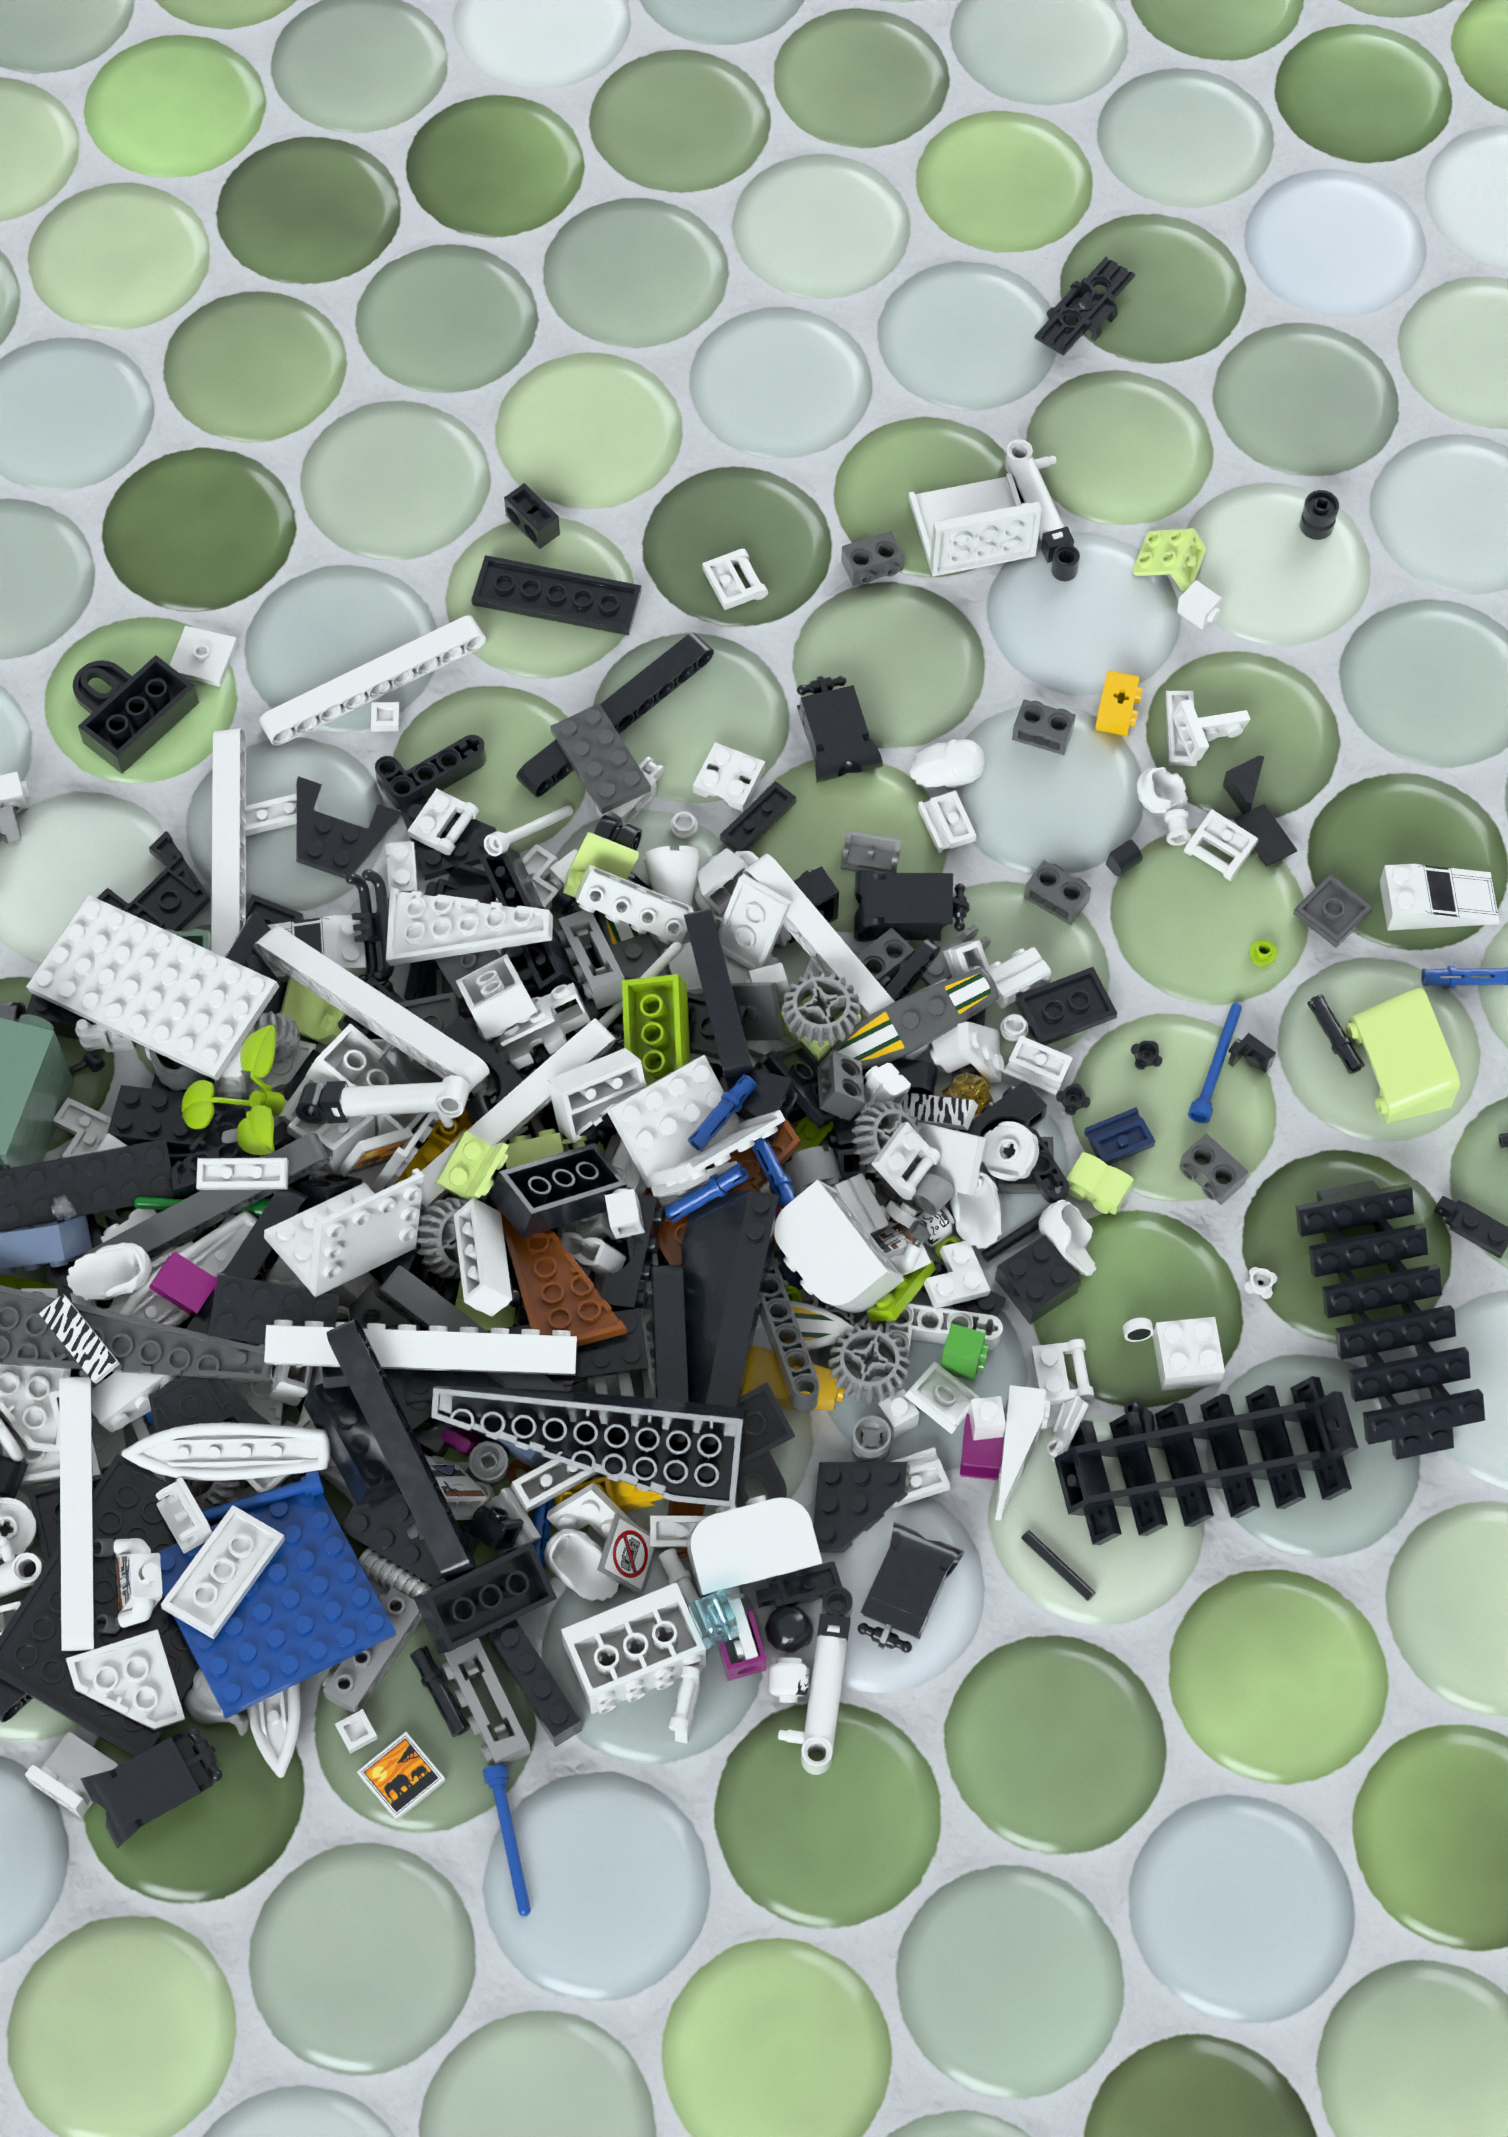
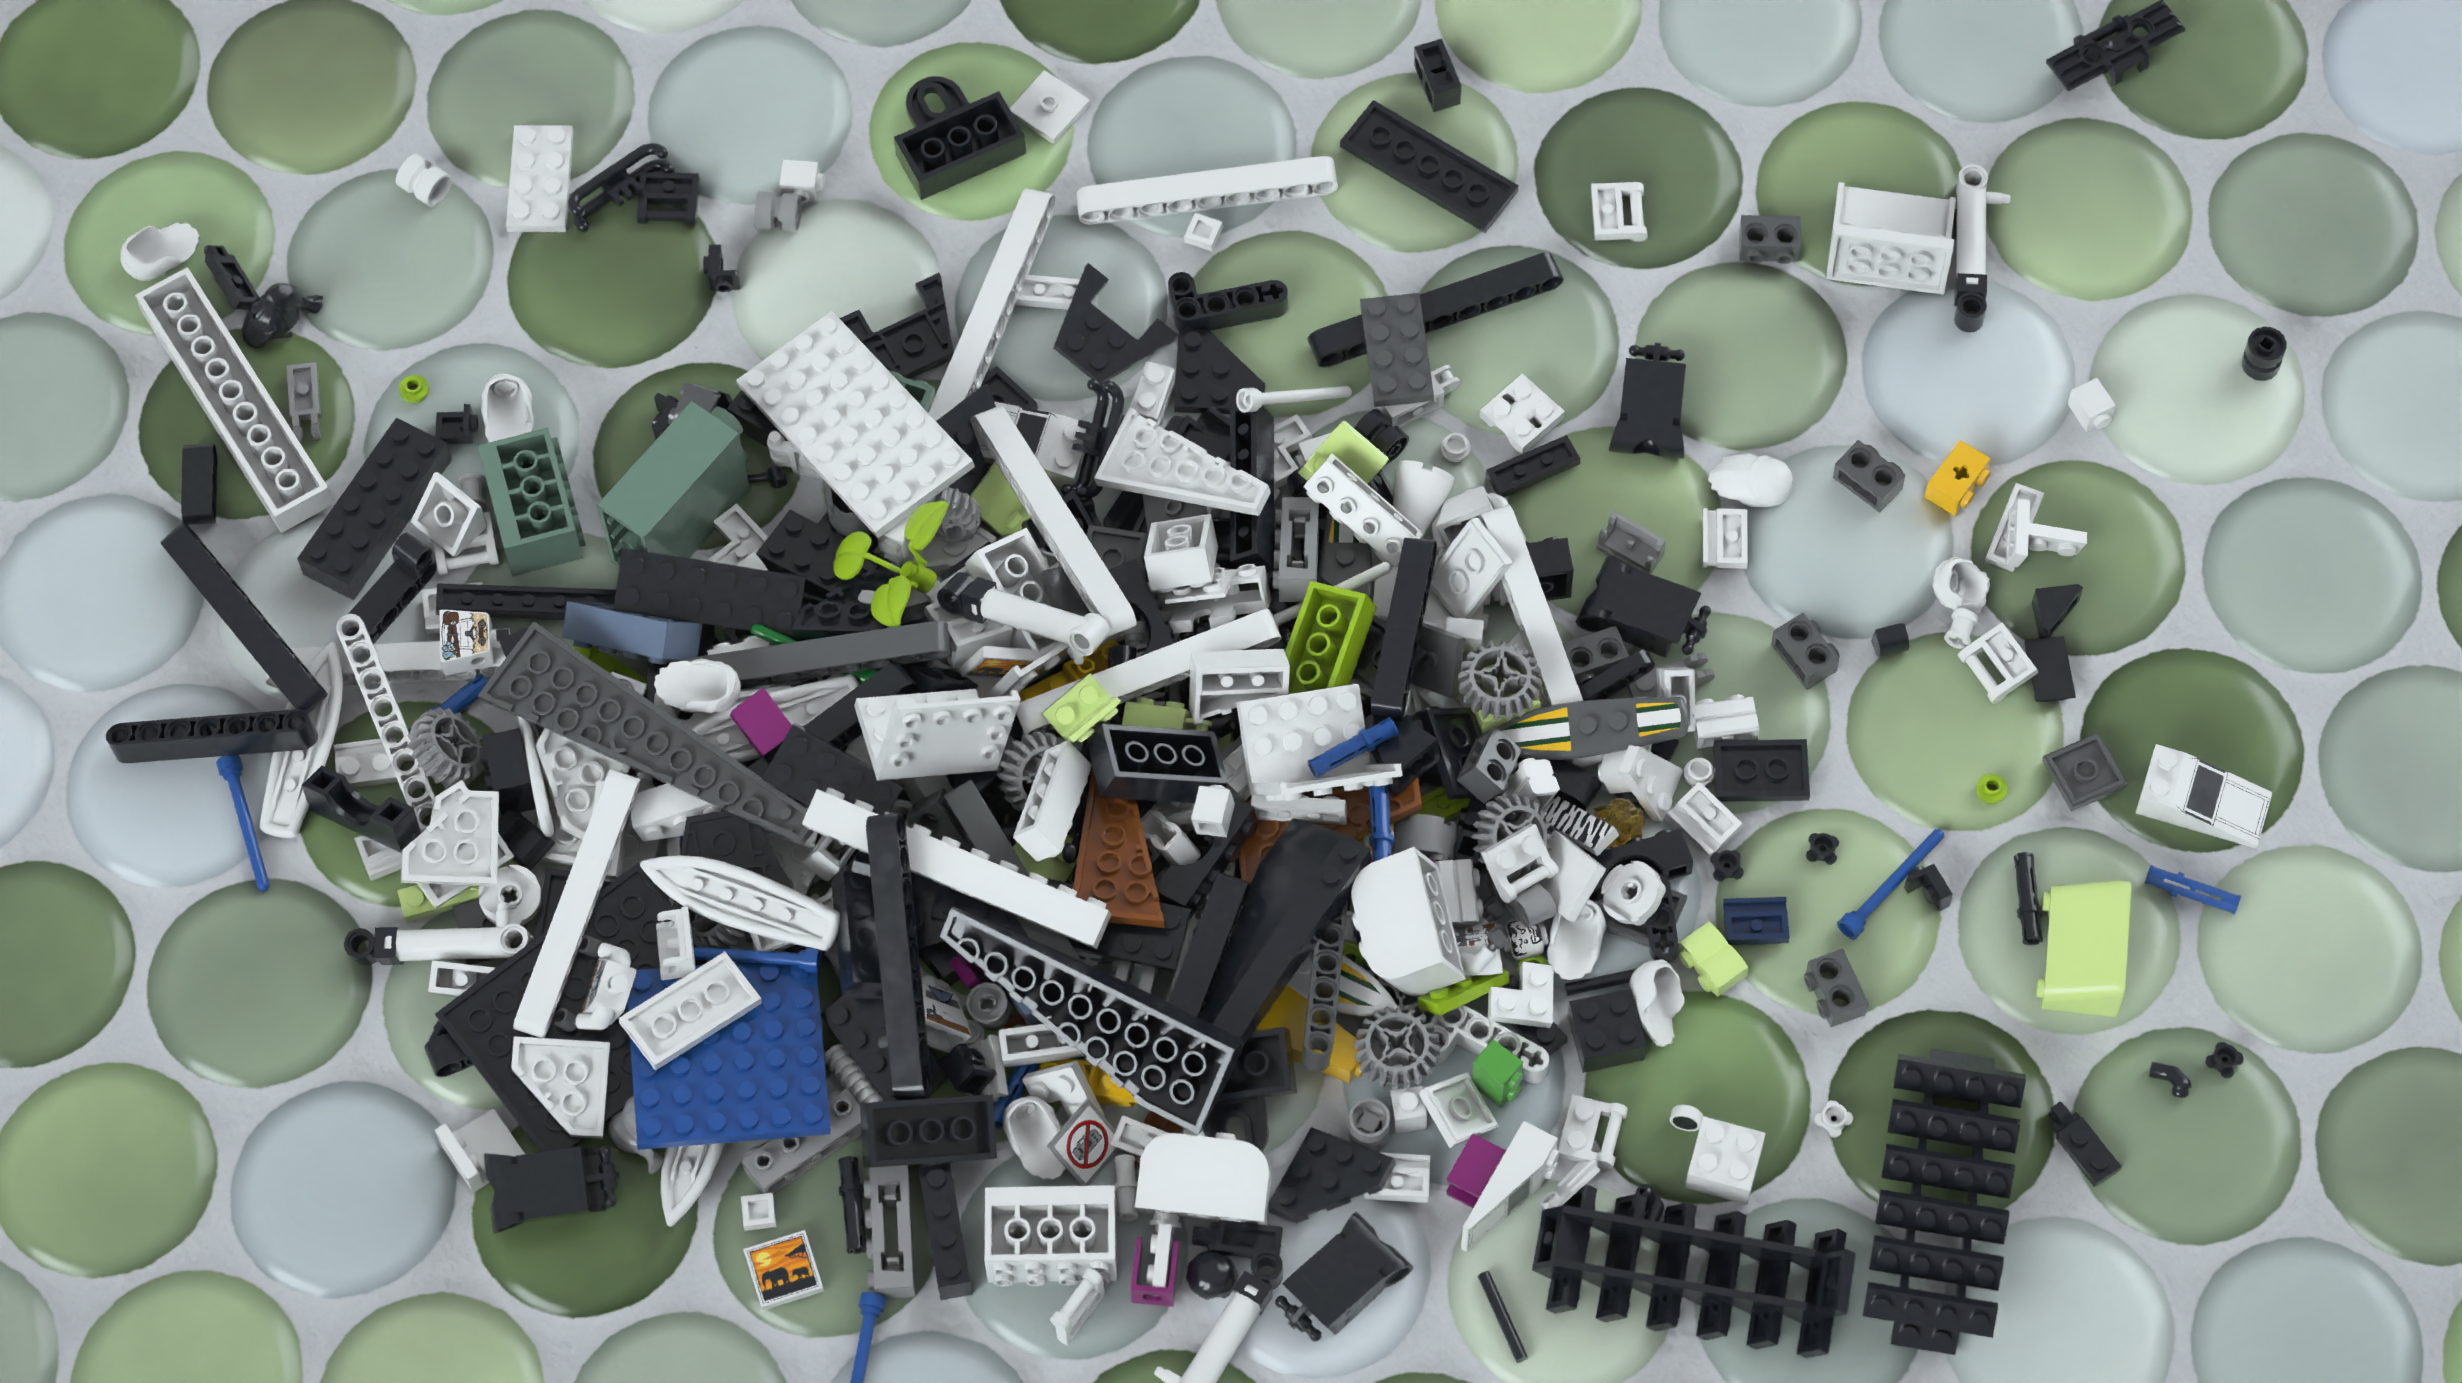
camera: 25 degrees right, 0 degrees up
(63, 1208) = (681, 609): clear plate -> none
(79, 1338) = (643, 738): tile -> none
(242, 1173) = (860, 636): white tile -> none
(436, 817) = (1207, 353): white plate -> none
(714, 1619) = (1134, 1234): clear light blue piece -> none
(716, 1186) = (1314, 818): blue pin -> none
(789, 1679) = (1189, 1322): white head -> none
(903, 1214) = (1496, 914): white plate -> none
(987, 1418) = (1487, 1144): white brick -> none
(1173, 553) = (2087, 341): yellowish green bracket -> none

